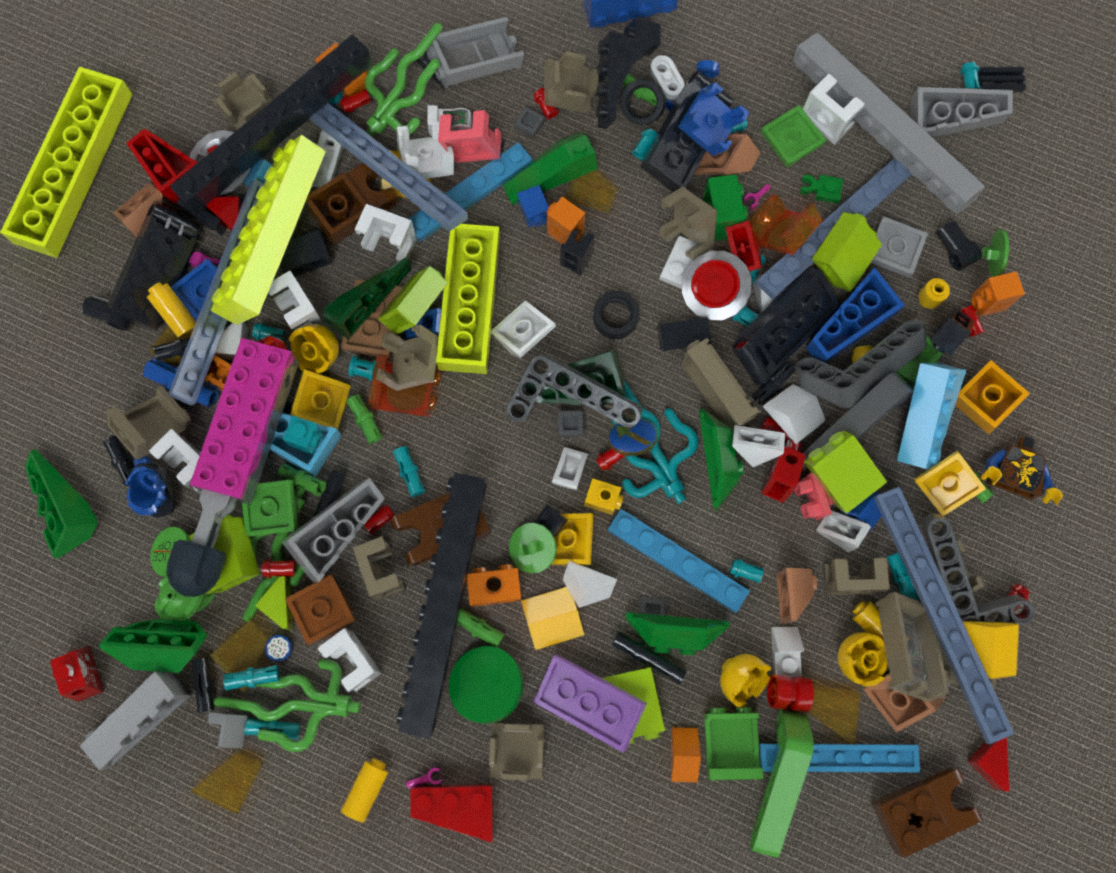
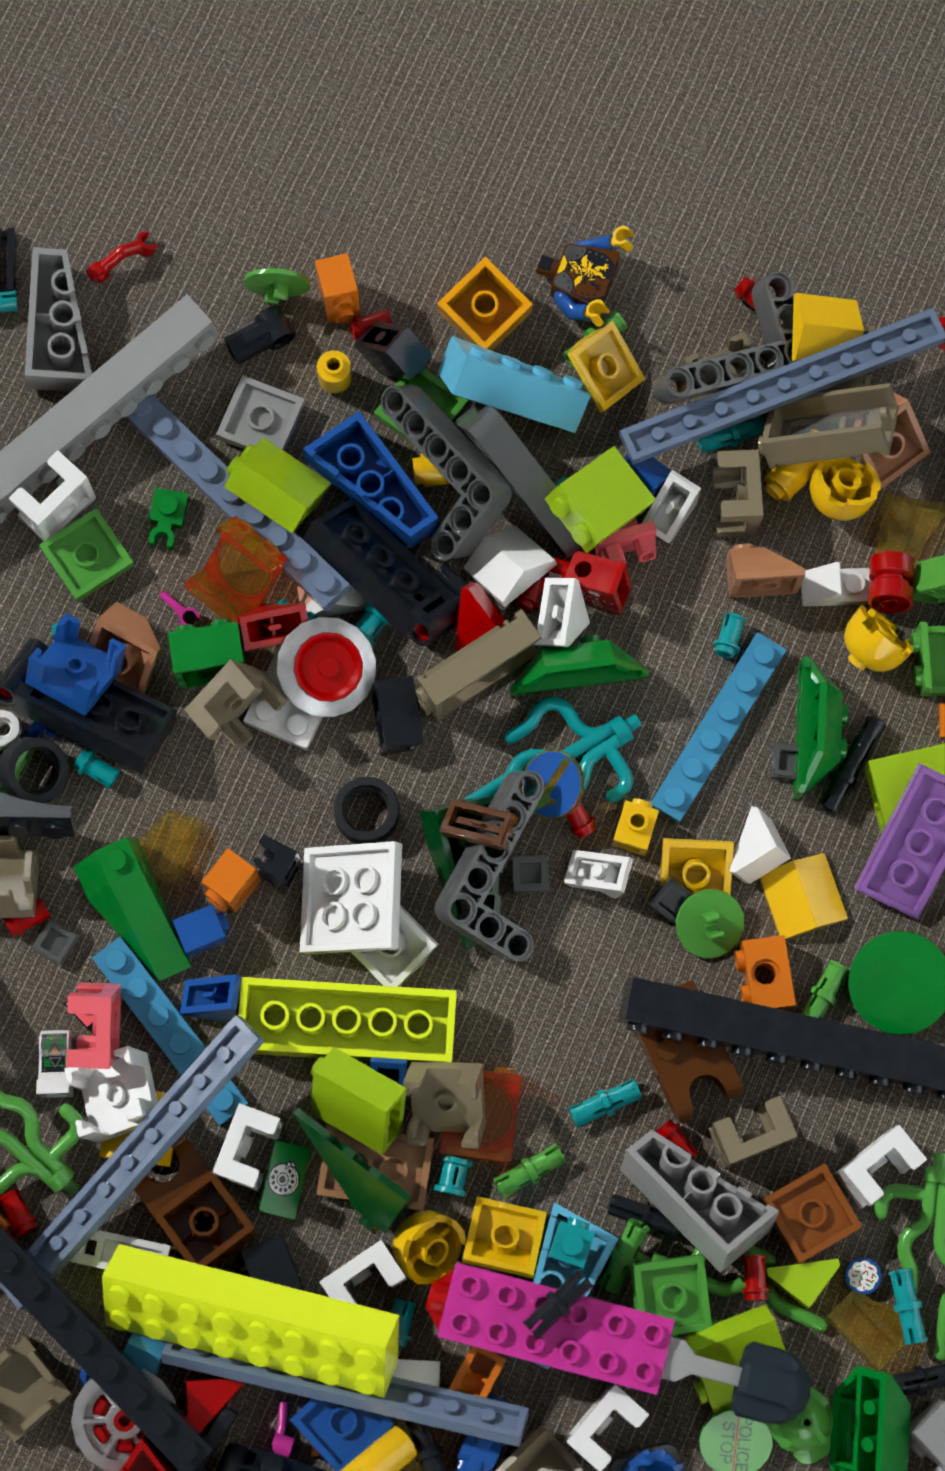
camera: 90 degrees left, 0 degrees up
(253, 415) = (558, 1304): none -> black pin
(365, 259) = (284, 1180): none -> green slope
(488, 212) = (211, 997): none -> blue slope
(553, 300) = (351, 898): none -> white plate
(594, 393) = (503, 832): none -> reddish brown tile
(757, 385) = (475, 616): none -> red slope
(1013, 153) = (101, 269): none -> red arm

